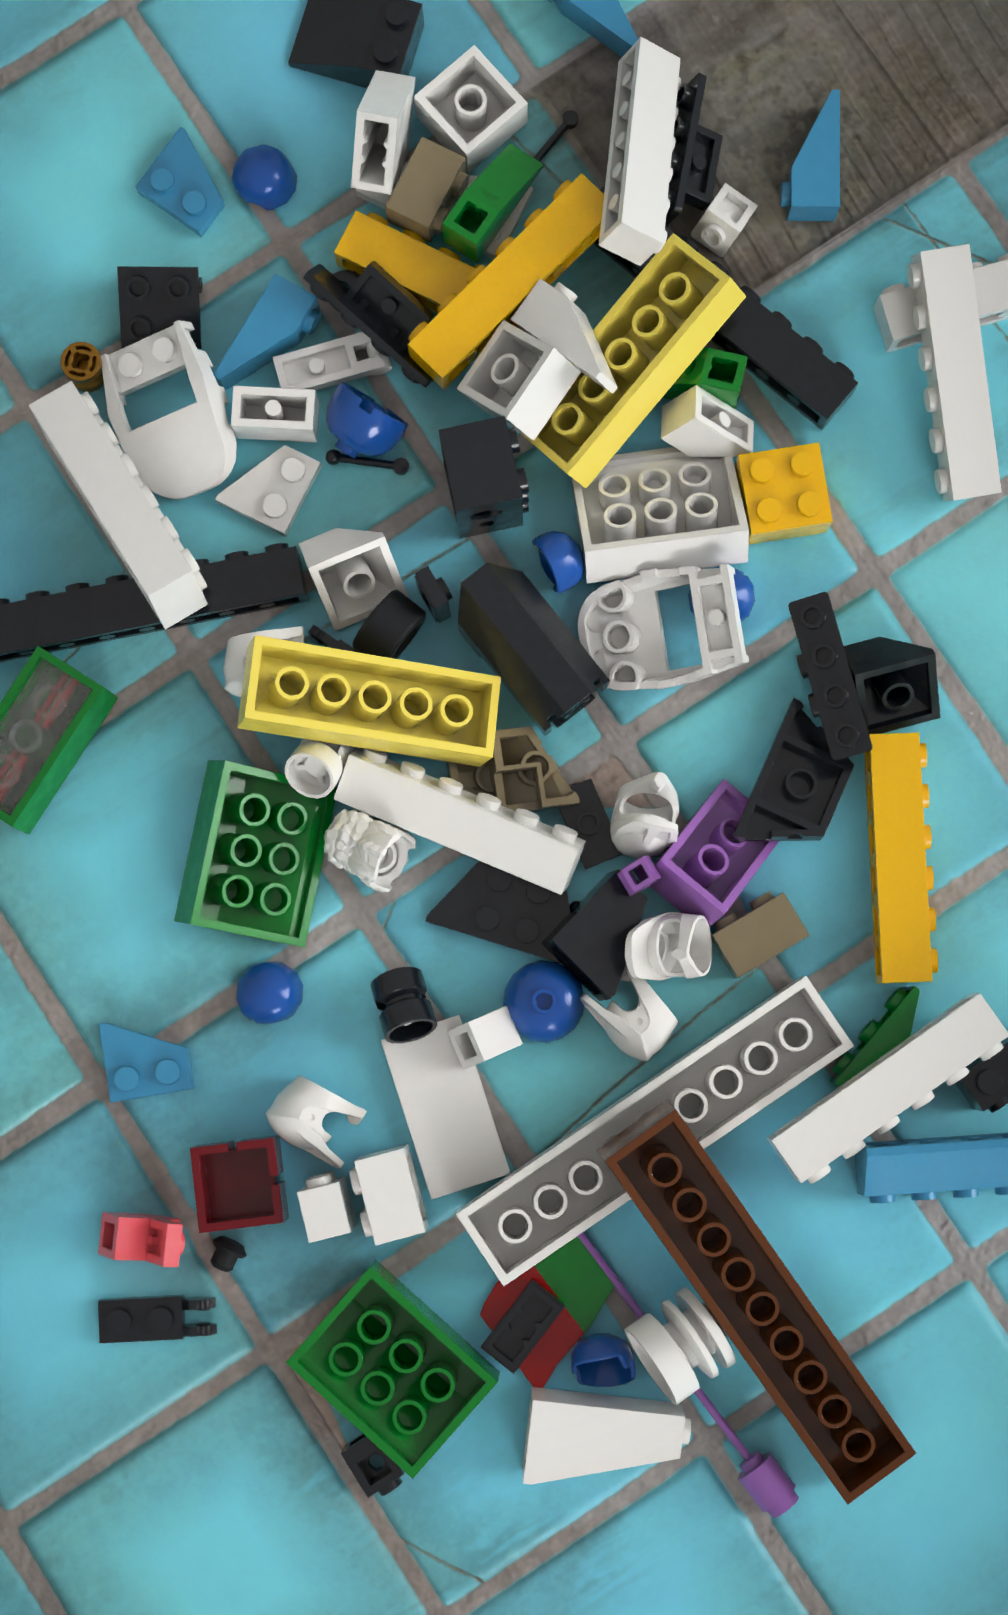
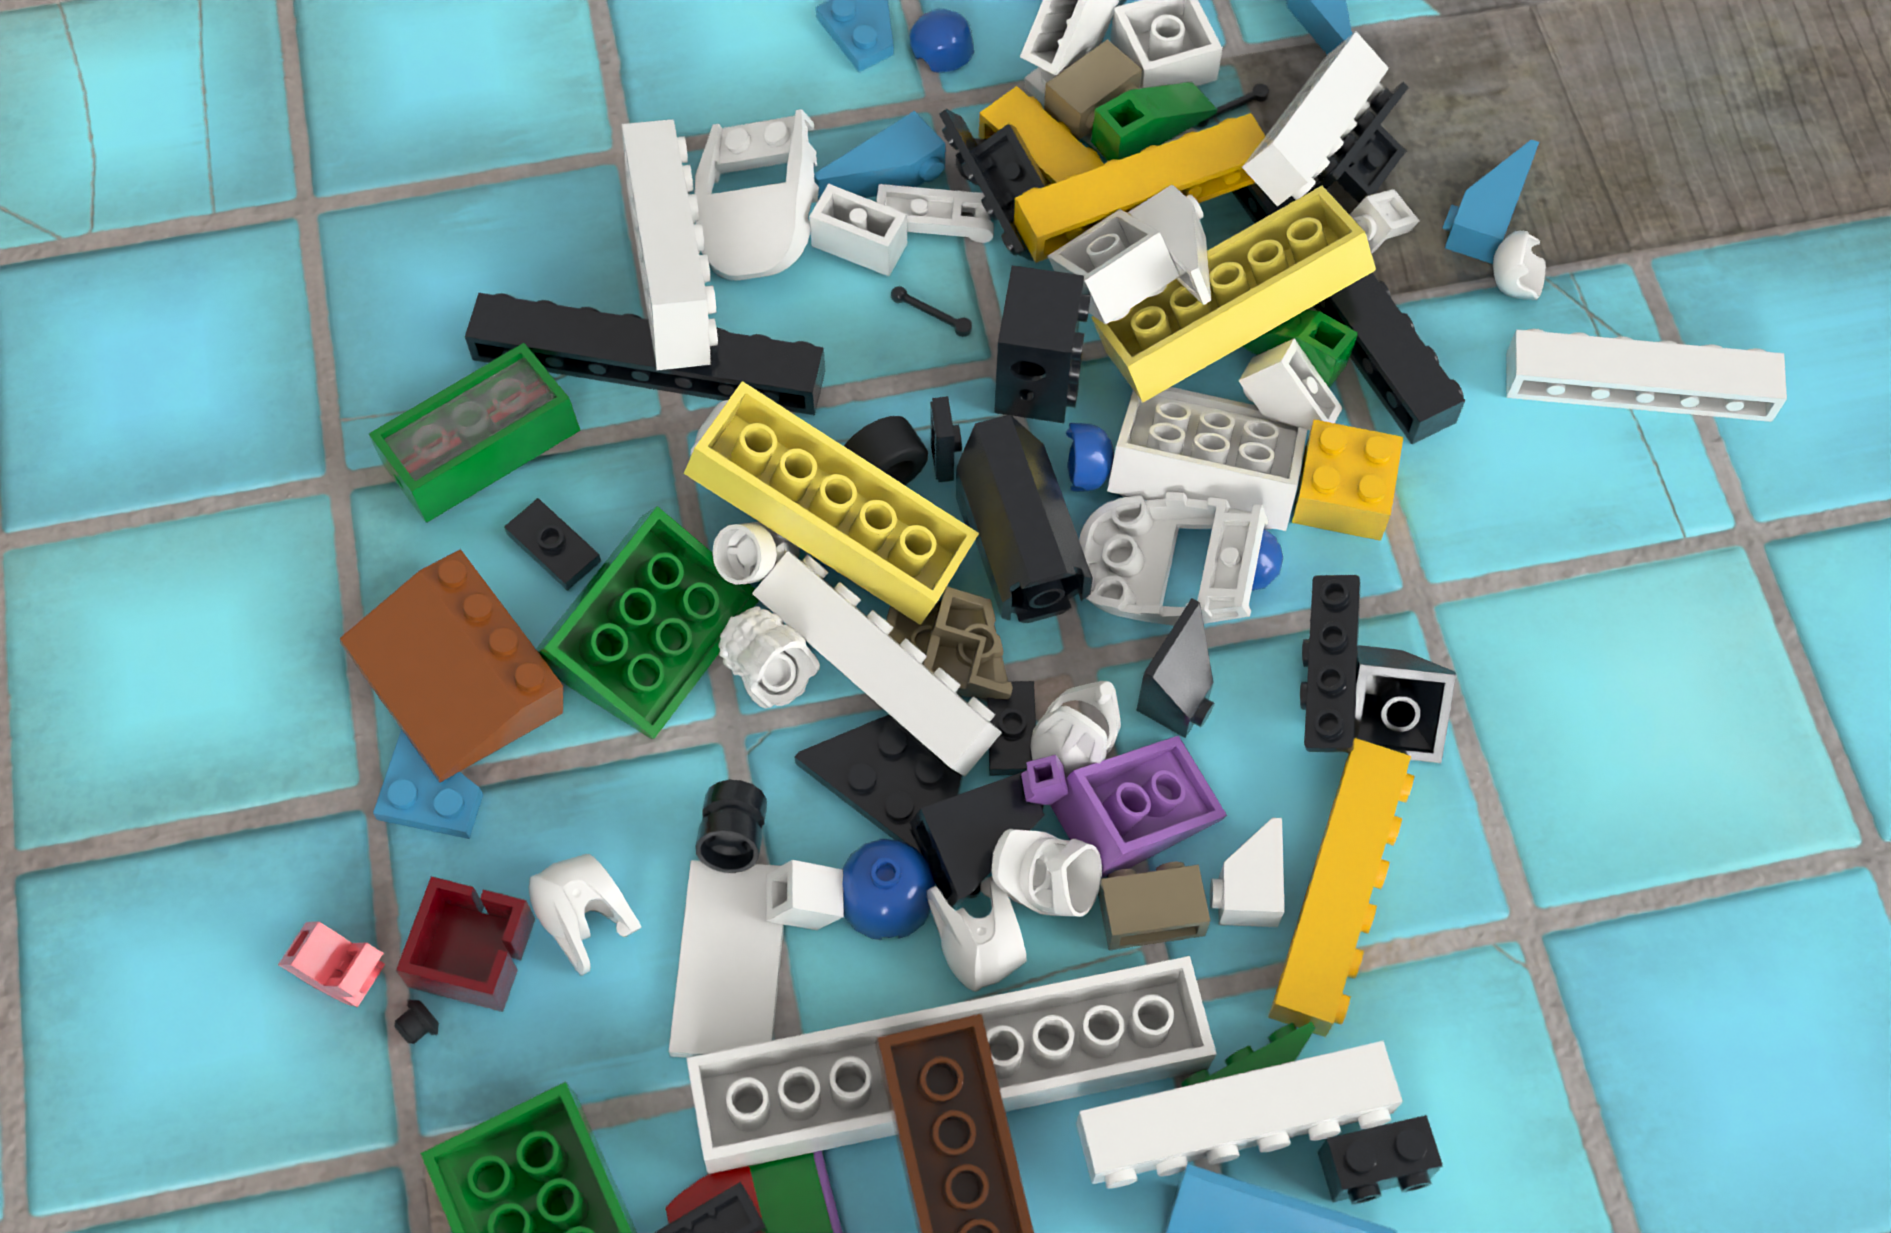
camera: 15 degrees right, 20 degrees down
(89, 373) = (695, 124): pearl gold wheel -> none
(115, 957) = (453, 666): none -> dark orange slope
(143, 810) = (552, 544): none -> black plate
(151, 1318) = (300, 1061): black hinge -> none
(156, 298) = (788, 88): black hinge -> none
(269, 992) = (595, 768): blue hair -> none
(273, 489) = (825, 302): white wing -> none
(326, 1207) = (548, 1004): white brick -> none
(351, 572) = (868, 388): white slope -> none
(362, 423) = (941, 267): blue cylinder -> none
(389, 1194) = (624, 1016): white brick -> none
(711, 732) = (1179, 676): none -> slope
(795, 785) = (1252, 767): black wing -> none
(827, 881) = (1252, 881): none -> white slope
(860, 223) = (1516, 267): none -> white hair
(954, 372) = (1571, 425): white brick -> none

